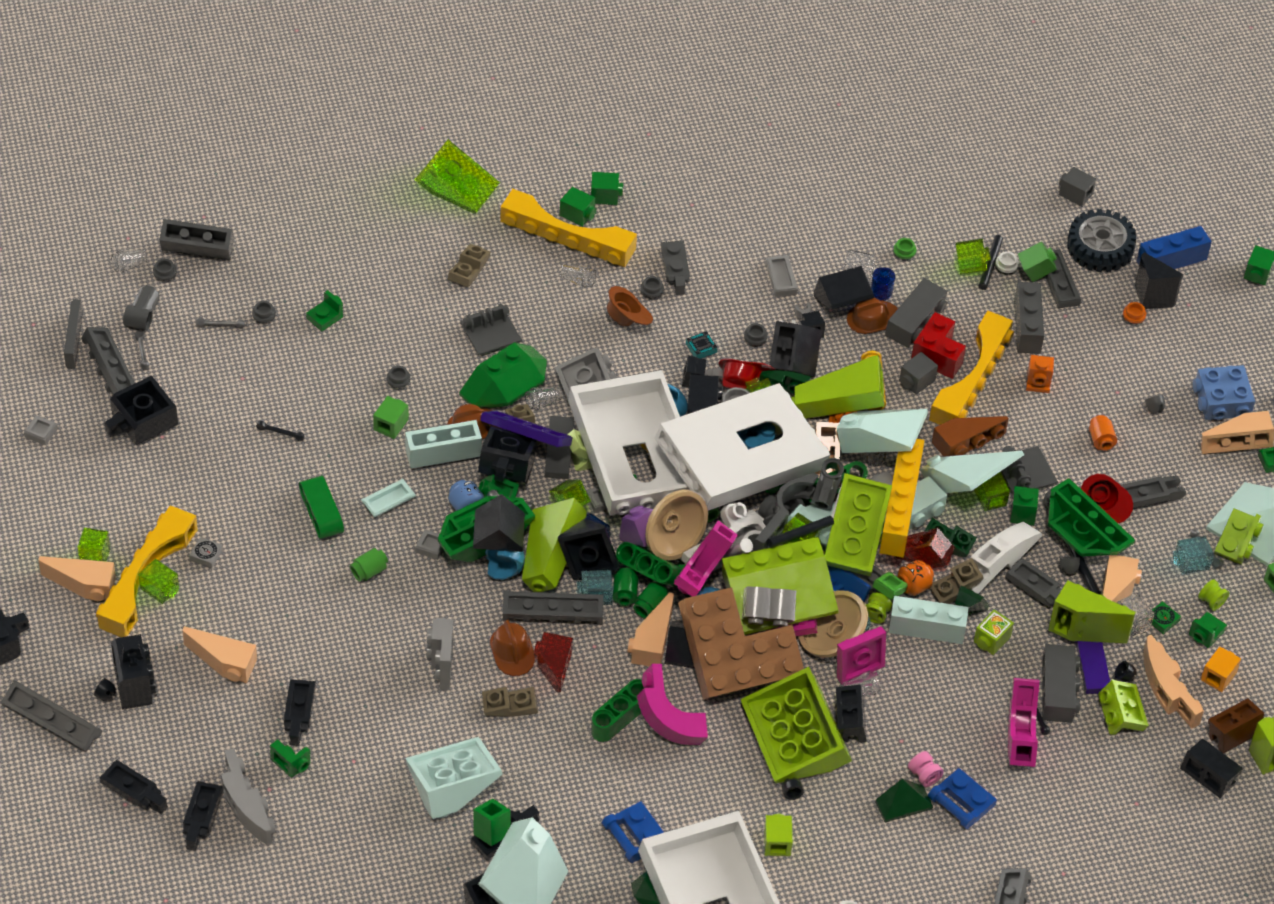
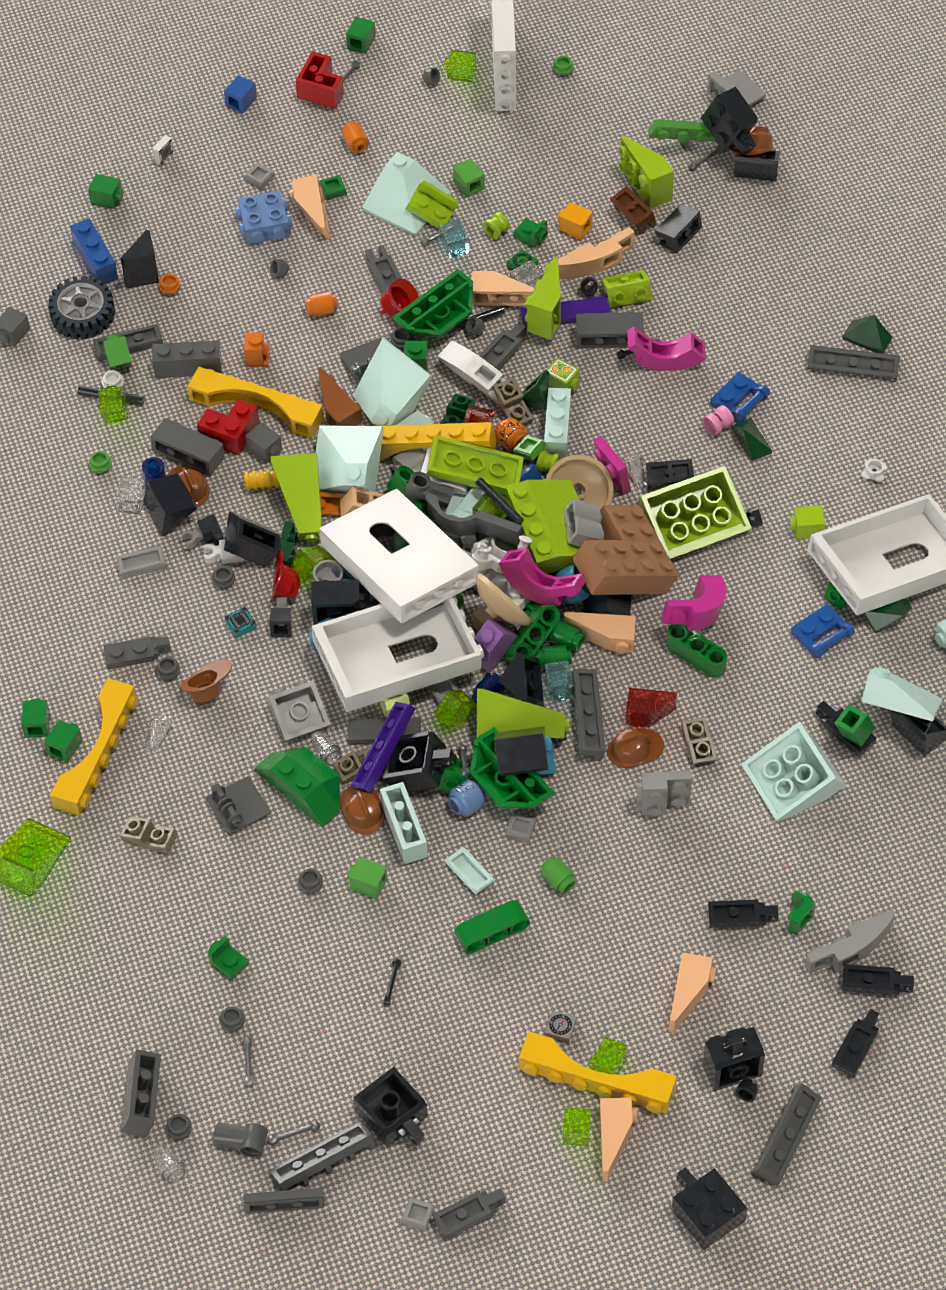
camera: 90 degrees left, 5 degrees up
(30, 463) = (468, 1212): none -> dark grey hinge

